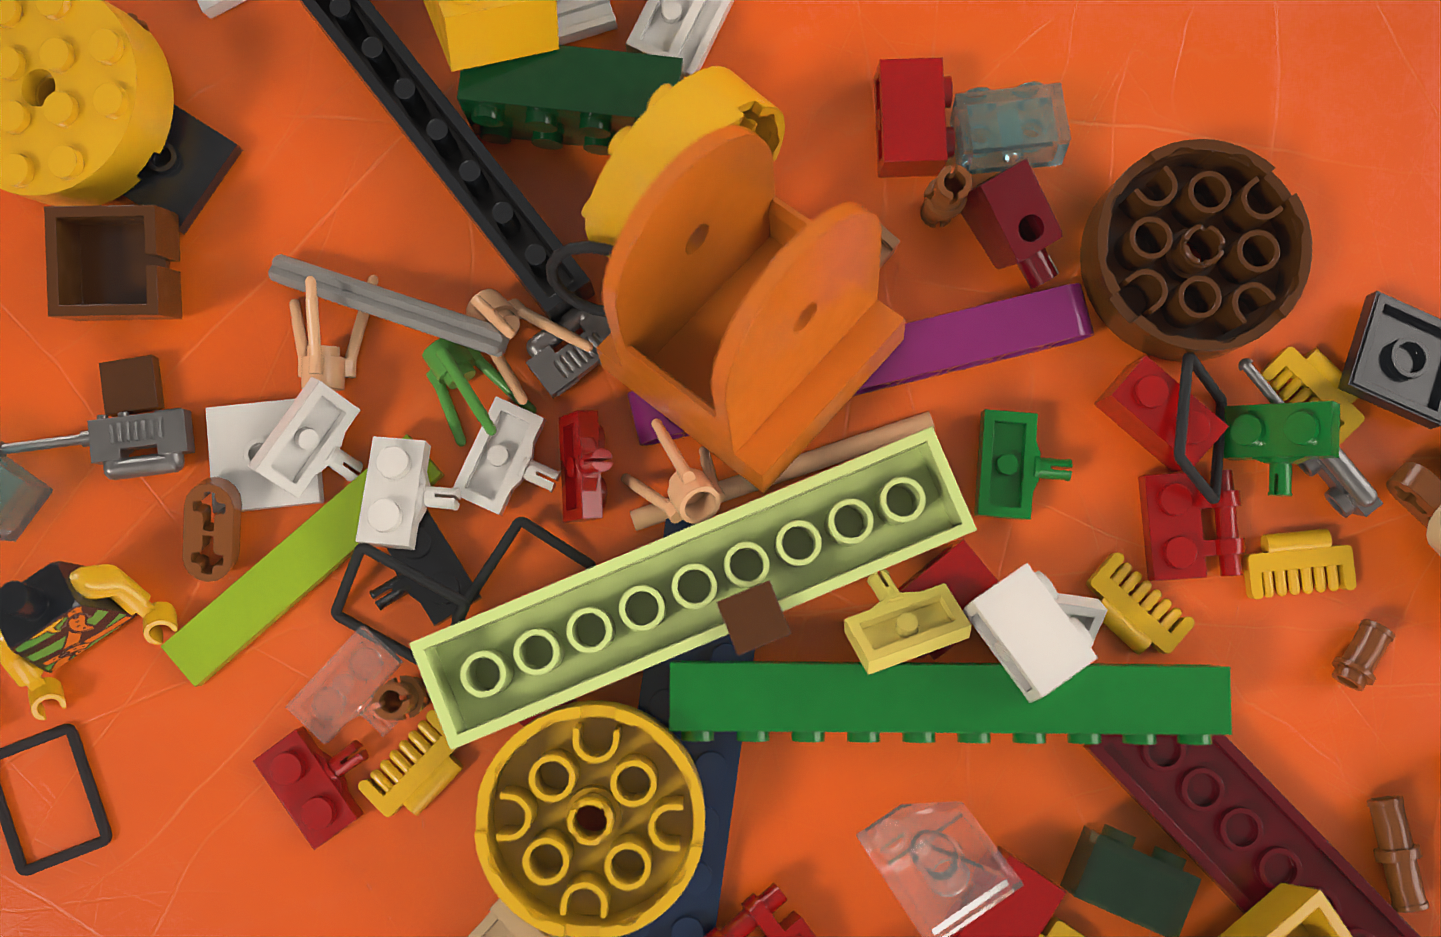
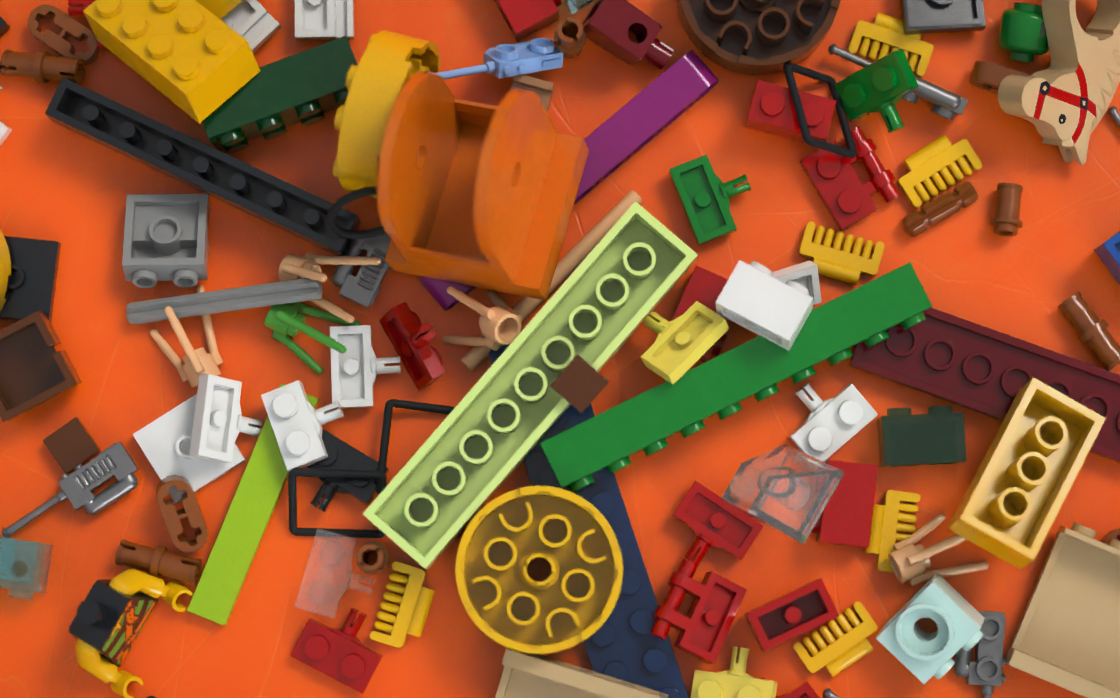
camera: 20 degrees left, 0 degrees up
(157, 571) = (158, 561): none -> dark orange pin
(358, 201) = (166, 239): none -> light grey plate
(833, 859) = (715, 524): none -> red plate
(863, 186) = (514, 60): none -> light blue piece
(1030, 802) = (831, 421): none -> white plate
(1281, 614) = (940, 209): none -> dark orange axle

